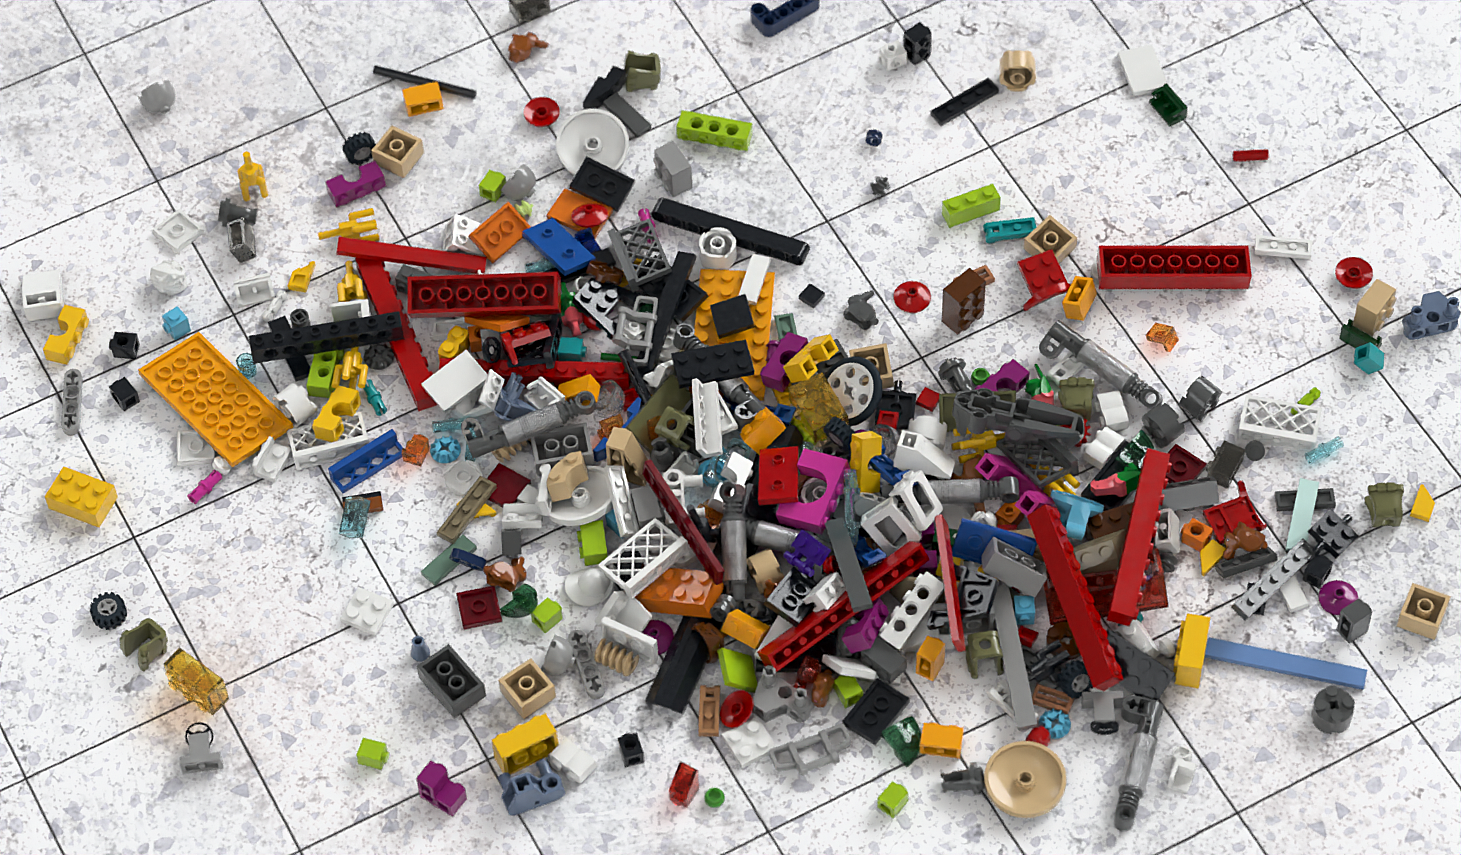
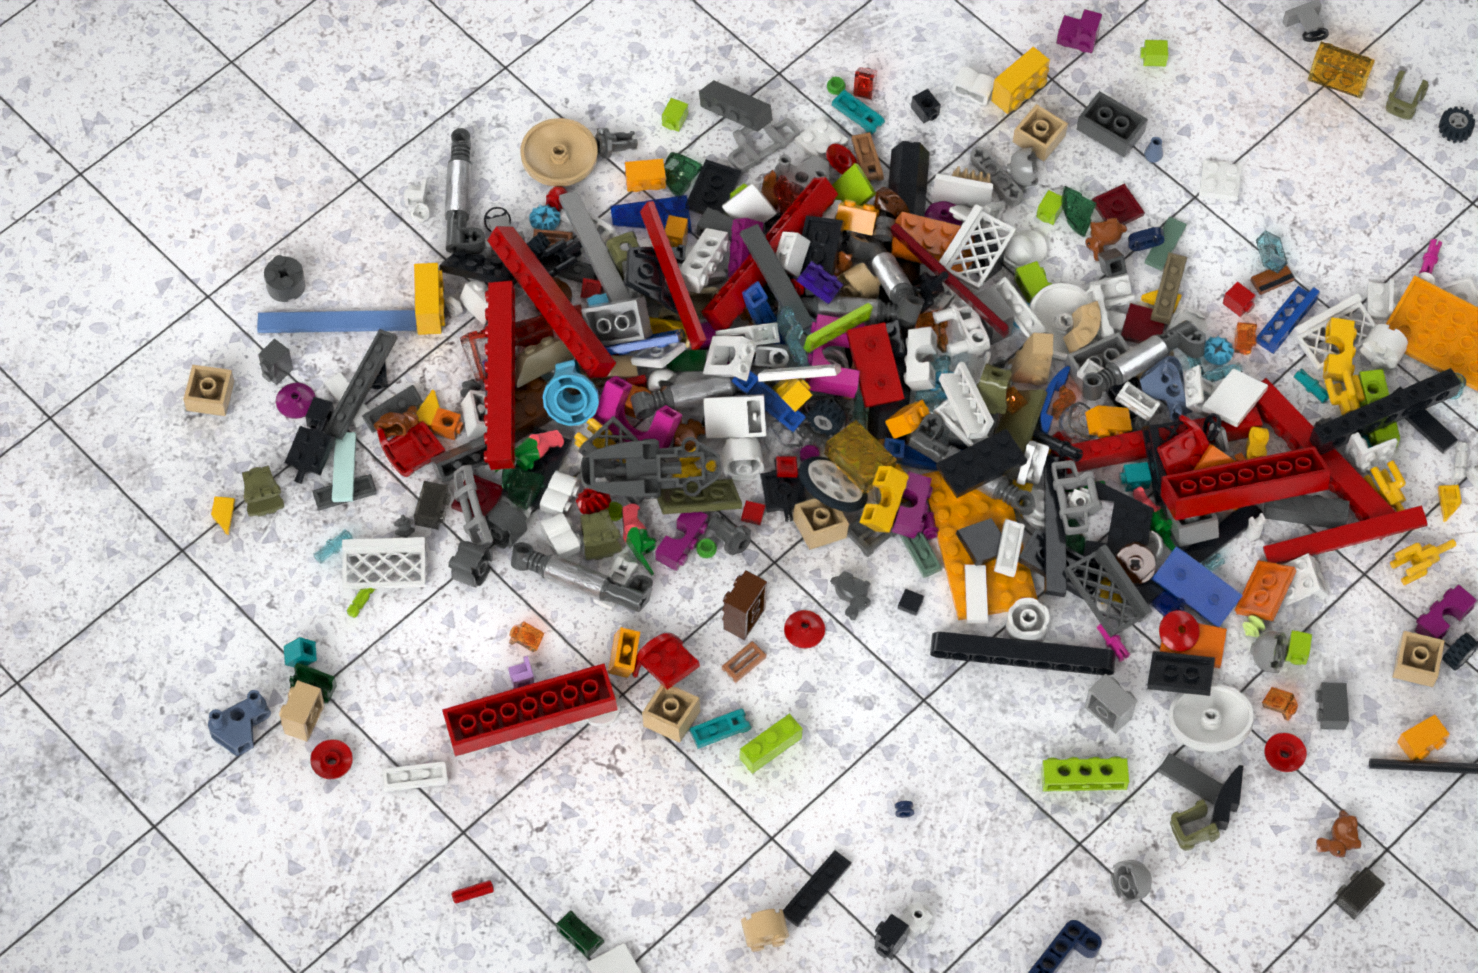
camera: 160 degrees right, 5 degrees up
(299, 318) = (1425, 445): dark grey wheel -> none
(404, 486) = (1239, 299): none -> red brick
(485, 137) = (1333, 706): none -> dark grey brick
(528, 149) = (1281, 702): none -> clear orange bracket
(529, 792) = (1002, 39): sand blue piece -> none
(578, 430) = (1088, 367): none -> white tile
(702, 761) = (858, 112): none -> teal plate
(706, 46) = (1131, 880): none -> light grey cylinder
(711, 303) = (1009, 548): none -> white tile
(805, 499) = (838, 327): none -> lime tile
(830, 780) = (735, 105): none -> dark grey brick
(855, 459) = (799, 372): none -> white tile
(880, 186) = (878, 747): dark grey wheel -> none
(944, 696) = (630, 217): none -> clear blue wing
(1173, 306) = (521, 674): none -> lavender panel
(1194, 448) = (462, 495): none -> light grey bar

